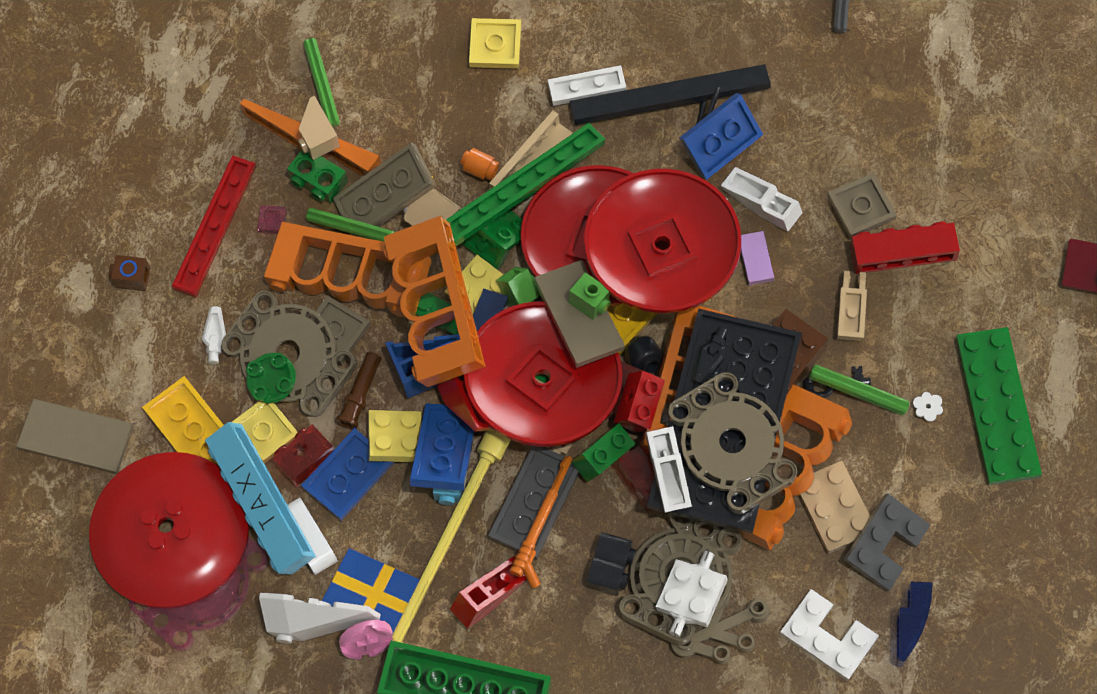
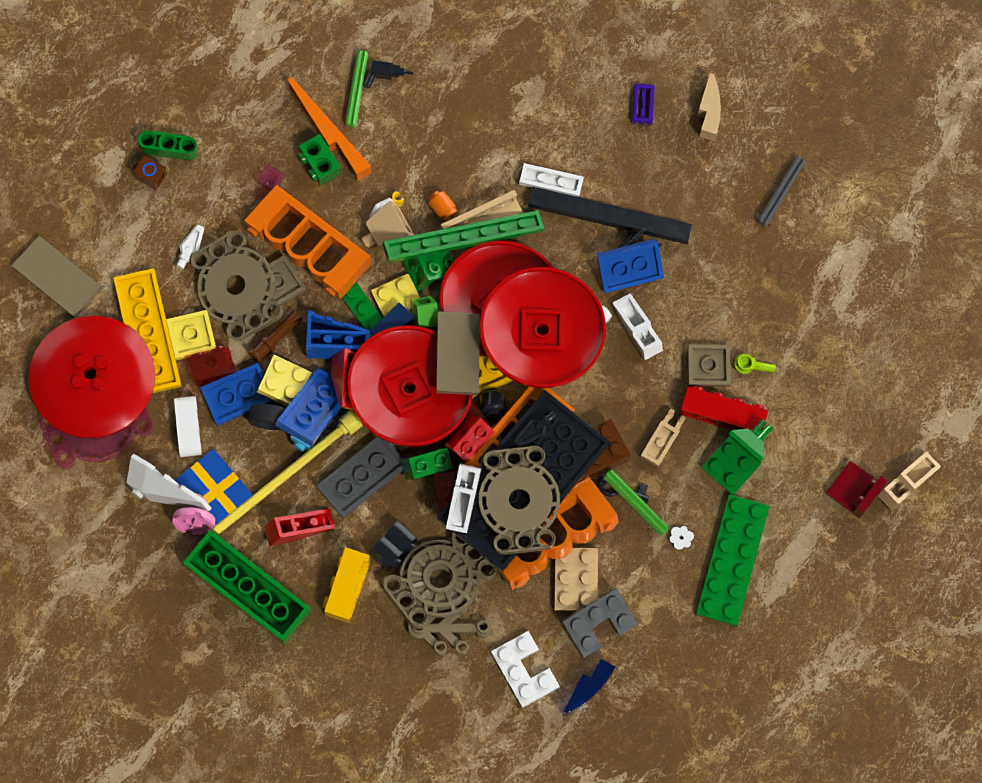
camera: 15 degrees right, 5 degrees up
(125, 230) = (160, 139): none -> green beam
(213, 226) = (227, 164): red tile -> none
(259, 498) = (165, 384): medium azure brick -> none
(270, 377) = (214, 298): green dish -> none
(316, 131) = (331, 127): tan slope -> none
(343, 50) = (383, 70): none -> black piece
(347, 225) = (325, 210): bright green axle -> none
(386, 188) = (361, 195): dark tan tile -> none
(393, 482) = (265, 416): none -> black tyre
(403, 250) = (350, 249): orange fence -> none
(495, 43) = (499, 116): light yellow plate -> none
(526, 552) = (338, 510): orange piece -> none
(578, 632) = (346, 585): none -> yellow wedge
(589, 296) = (469, 345): bright green brick -> none
(691, 593) = (439, 594): white plate -> none
(756, 258) = (611, 369): lavender tile -> none
(901, 185) = (745, 364): none -> lime plate
(947, 288) = (738, 457): none -> green plate

